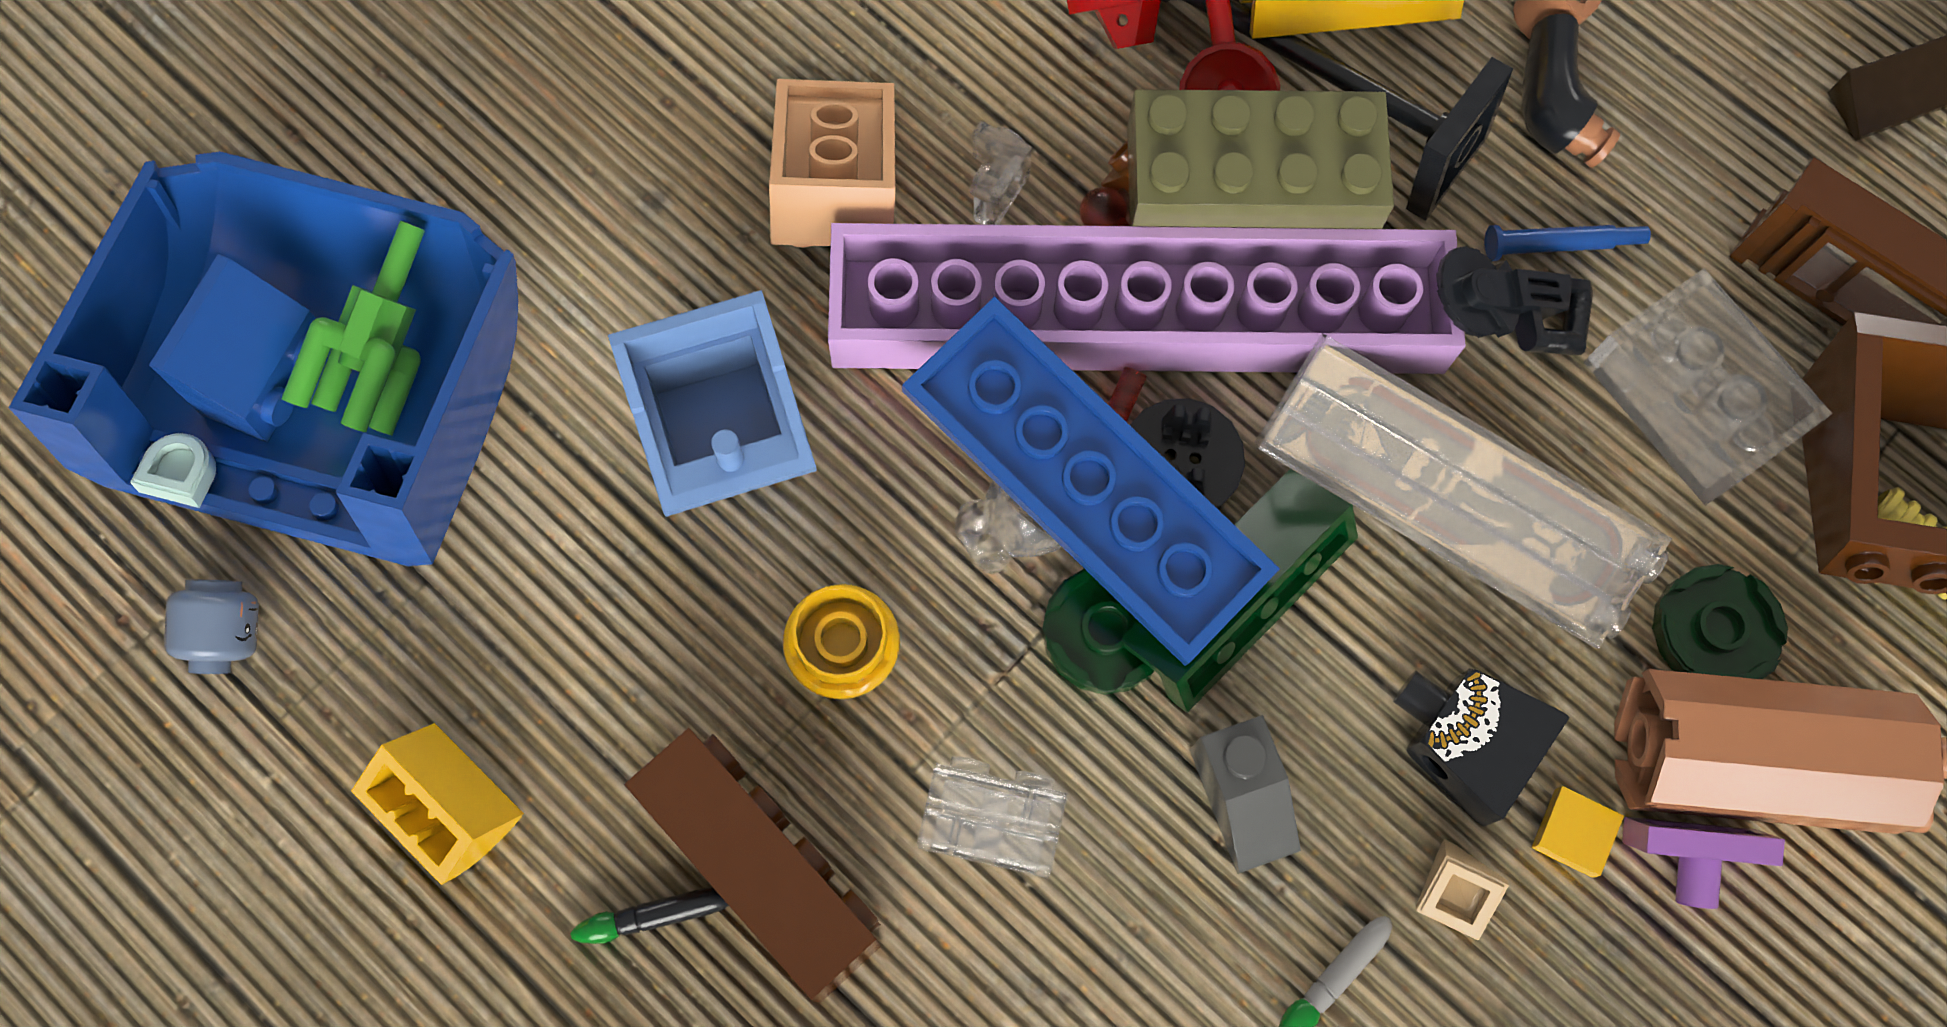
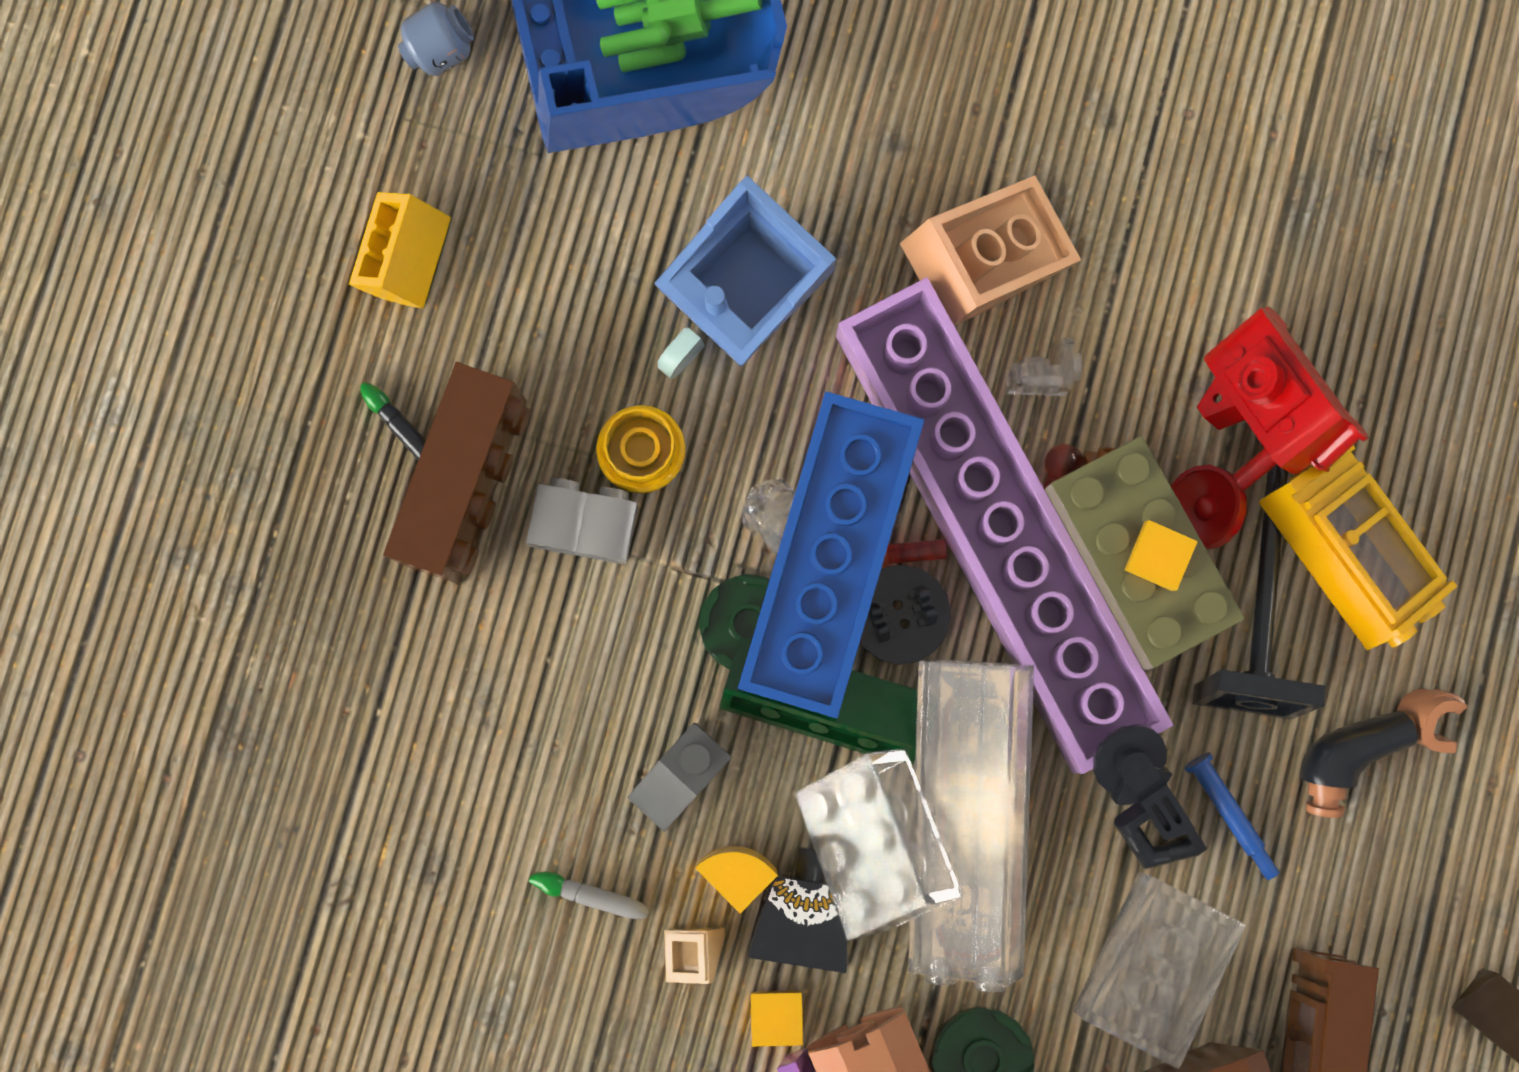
camera: 65 degrees right, 10 degrees up
(754, 538) = (680, 353): none -> light aqua tile
(890, 753) = (582, 522): none -> light grey brick
(992, 817) = (574, 612): clear brick -> none
(1280, 129) = (1160, 555): none -> yellow tile
(1402, 778) = (737, 874): none -> yellow brick
(1444, 602) = (877, 843): none -> clear brick

